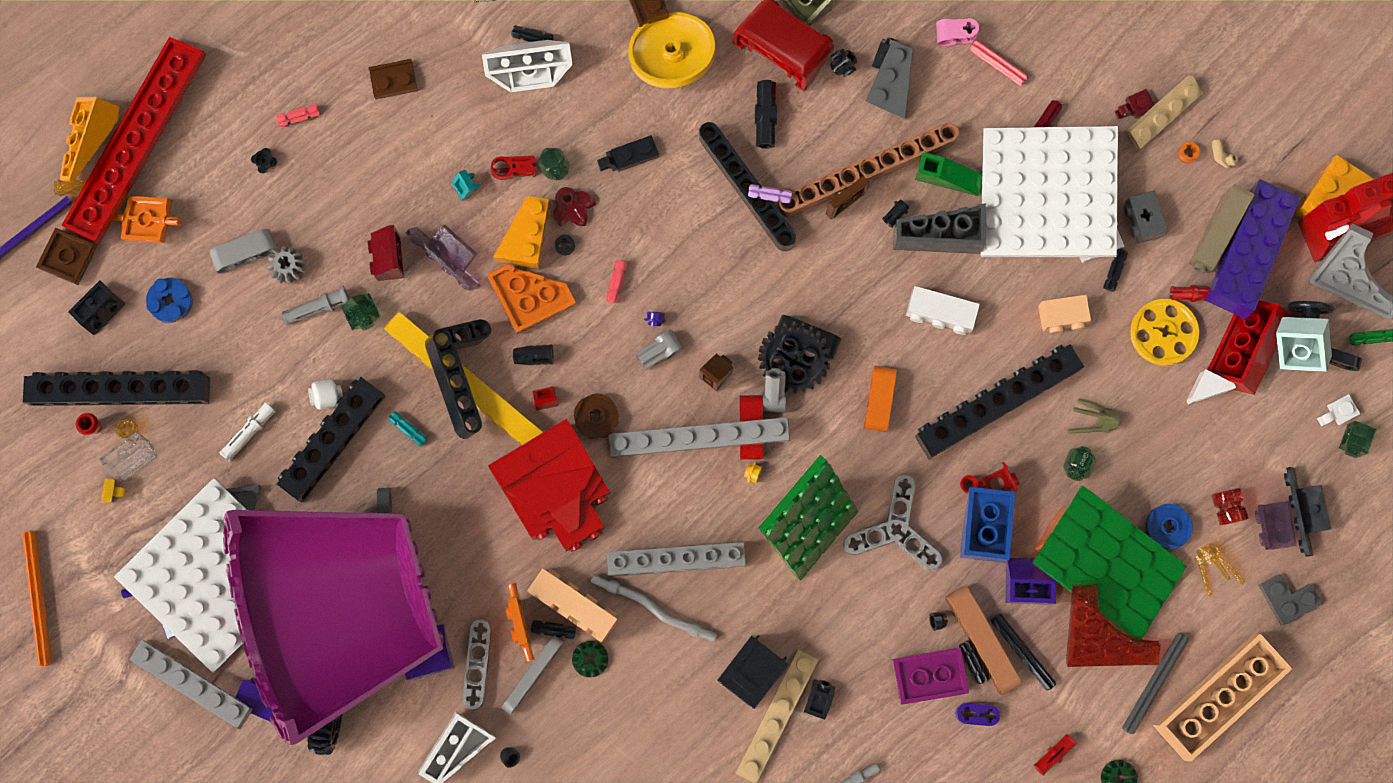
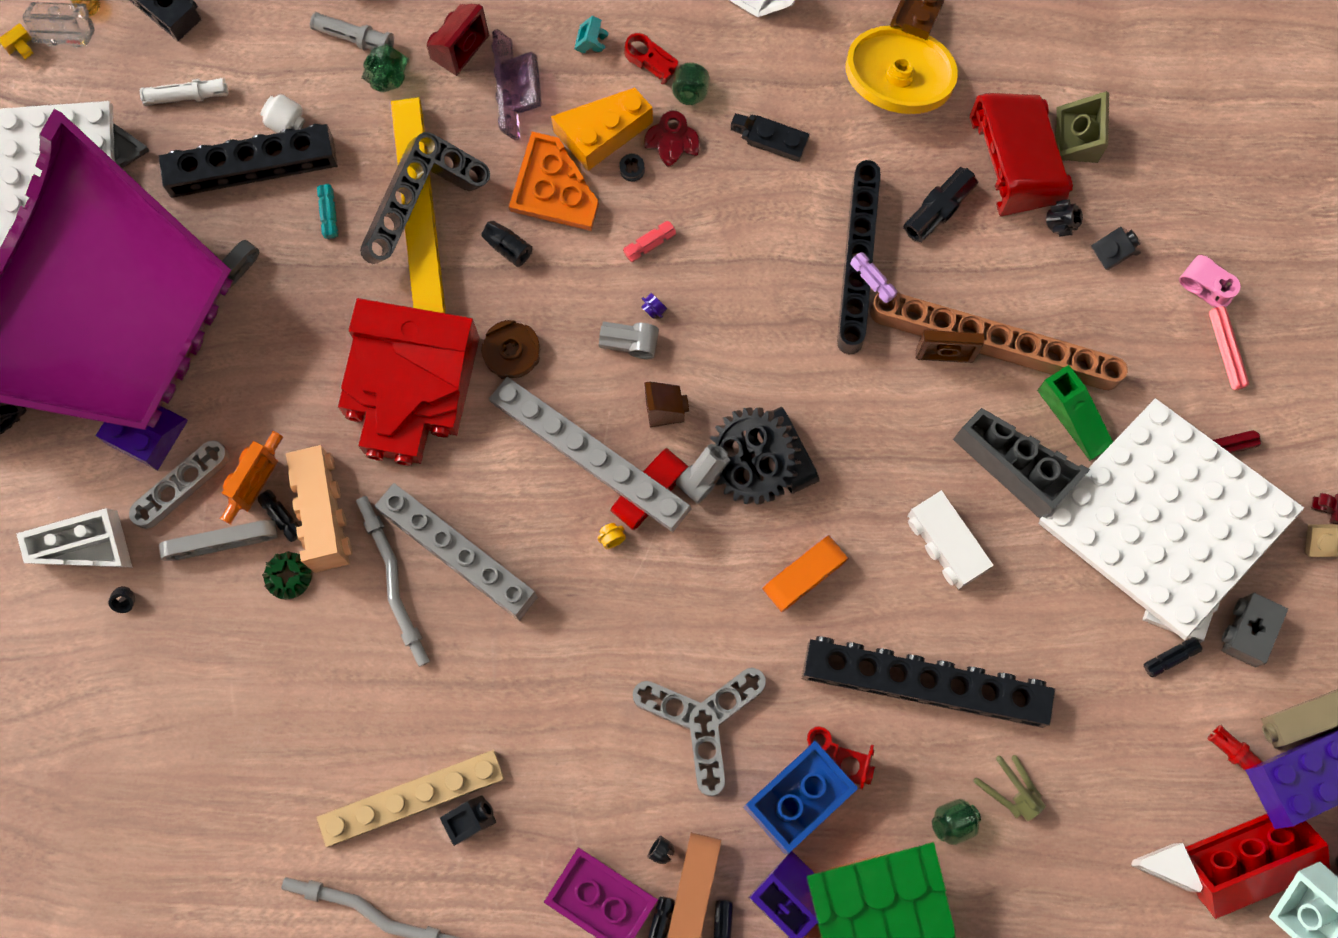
camera: 45 degrees right, 5 degrees down
(545, 398) = (479, 292): red slope -> none
(752, 672) = (423, 728): black container -> none
(809, 518) = (611, 616): green piece -> none
(892, 81) = (1097, 275): dark grey wing -> none
(897, 211) = (994, 405): black pin -> none
(1064, 313) = (1077, 654): light nougat brick -> none
(1173, 327) = (1187, 767): yellow wedge -> none

